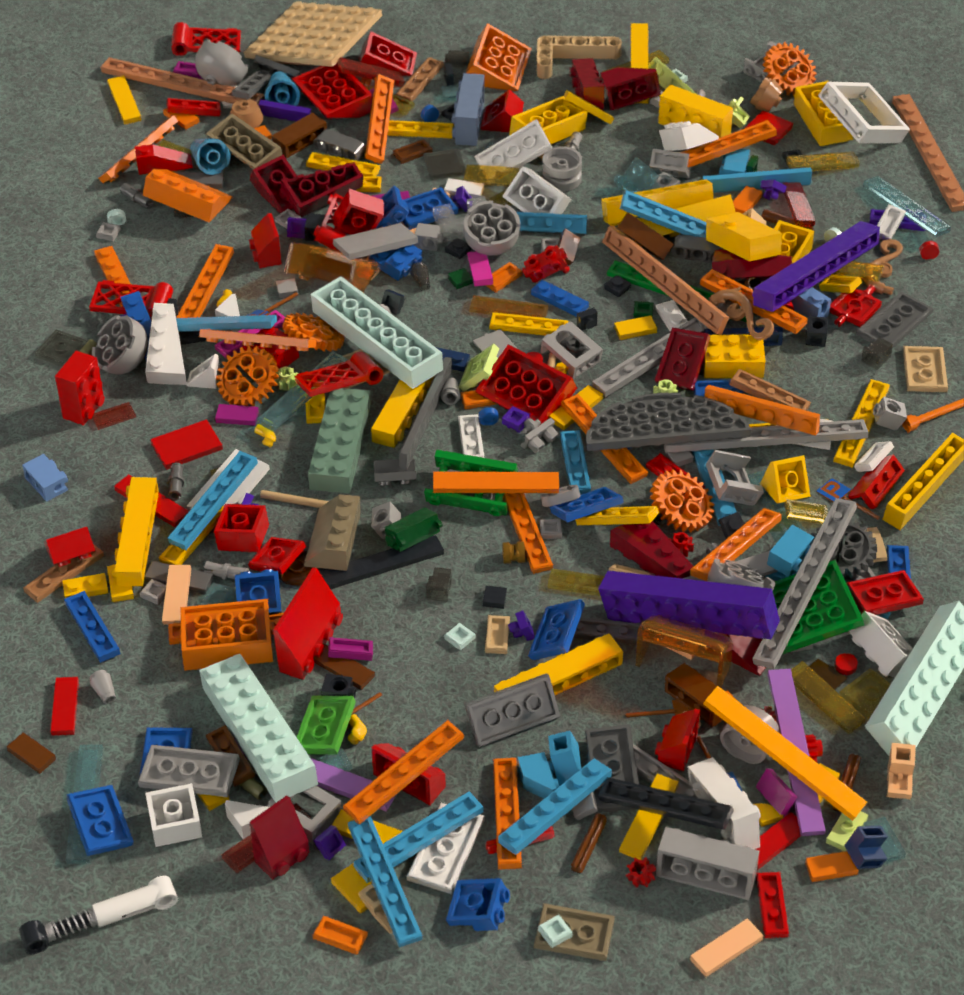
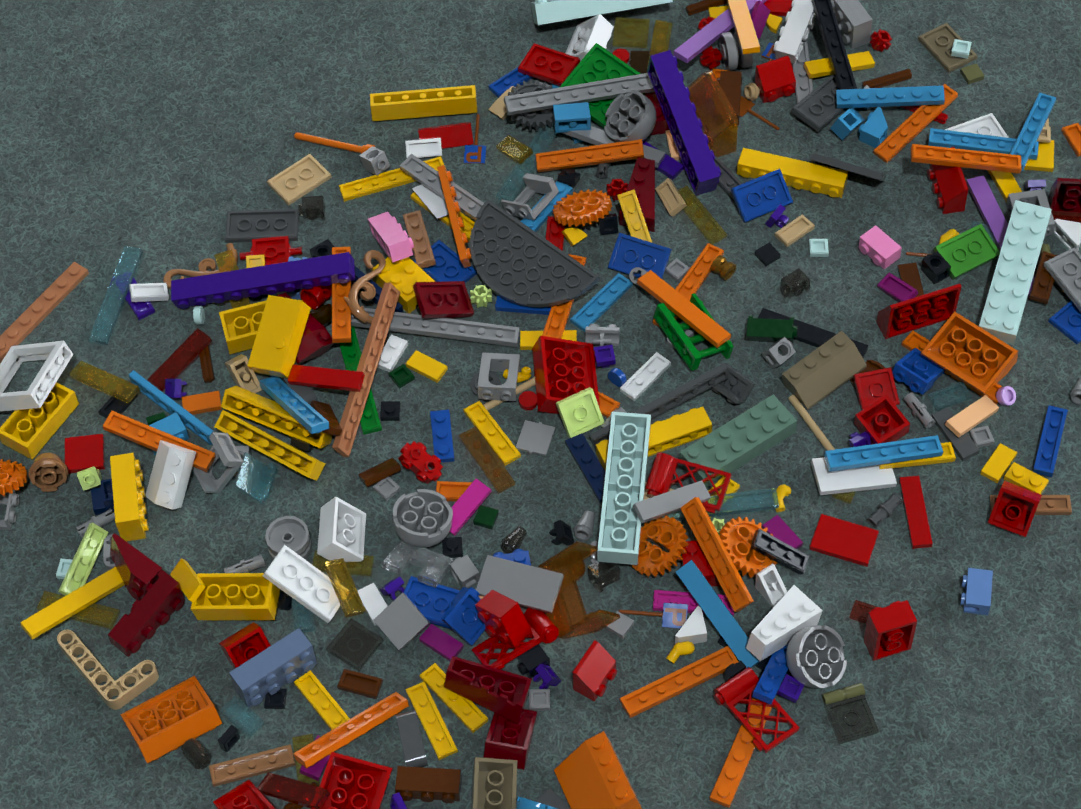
camera: 130 degrees left, 10 degrees up
(136, 532) = (957, 480): yellow brick -> none
(164, 632) = (1006, 396): none -> lavender tile
(221, 390) = (779, 551): none -> black tile
(327, 340) = (670, 501): none -> light grey tile
(405, 670) = (879, 247): none -> bright pink brick
(428, 184) = (401, 621): none -> light grey tile
(429, 113) = (299, 708): blue tile -> none
(478, 904) = (987, 91): blue plate -> none
(518, 921) = (972, 73): none -> olive tile
(552, 222) = (362, 505): dark azure tile -> none
(587, 319) = (453, 395): black plate -> none
(677, 247) = (326, 378): none -> red tile
(783, 361) = (391, 236): none -> bright pink brick
(786, 479) = (501, 172): yellow slope -> none
(929, 250) = (159, 250): red tile -> none

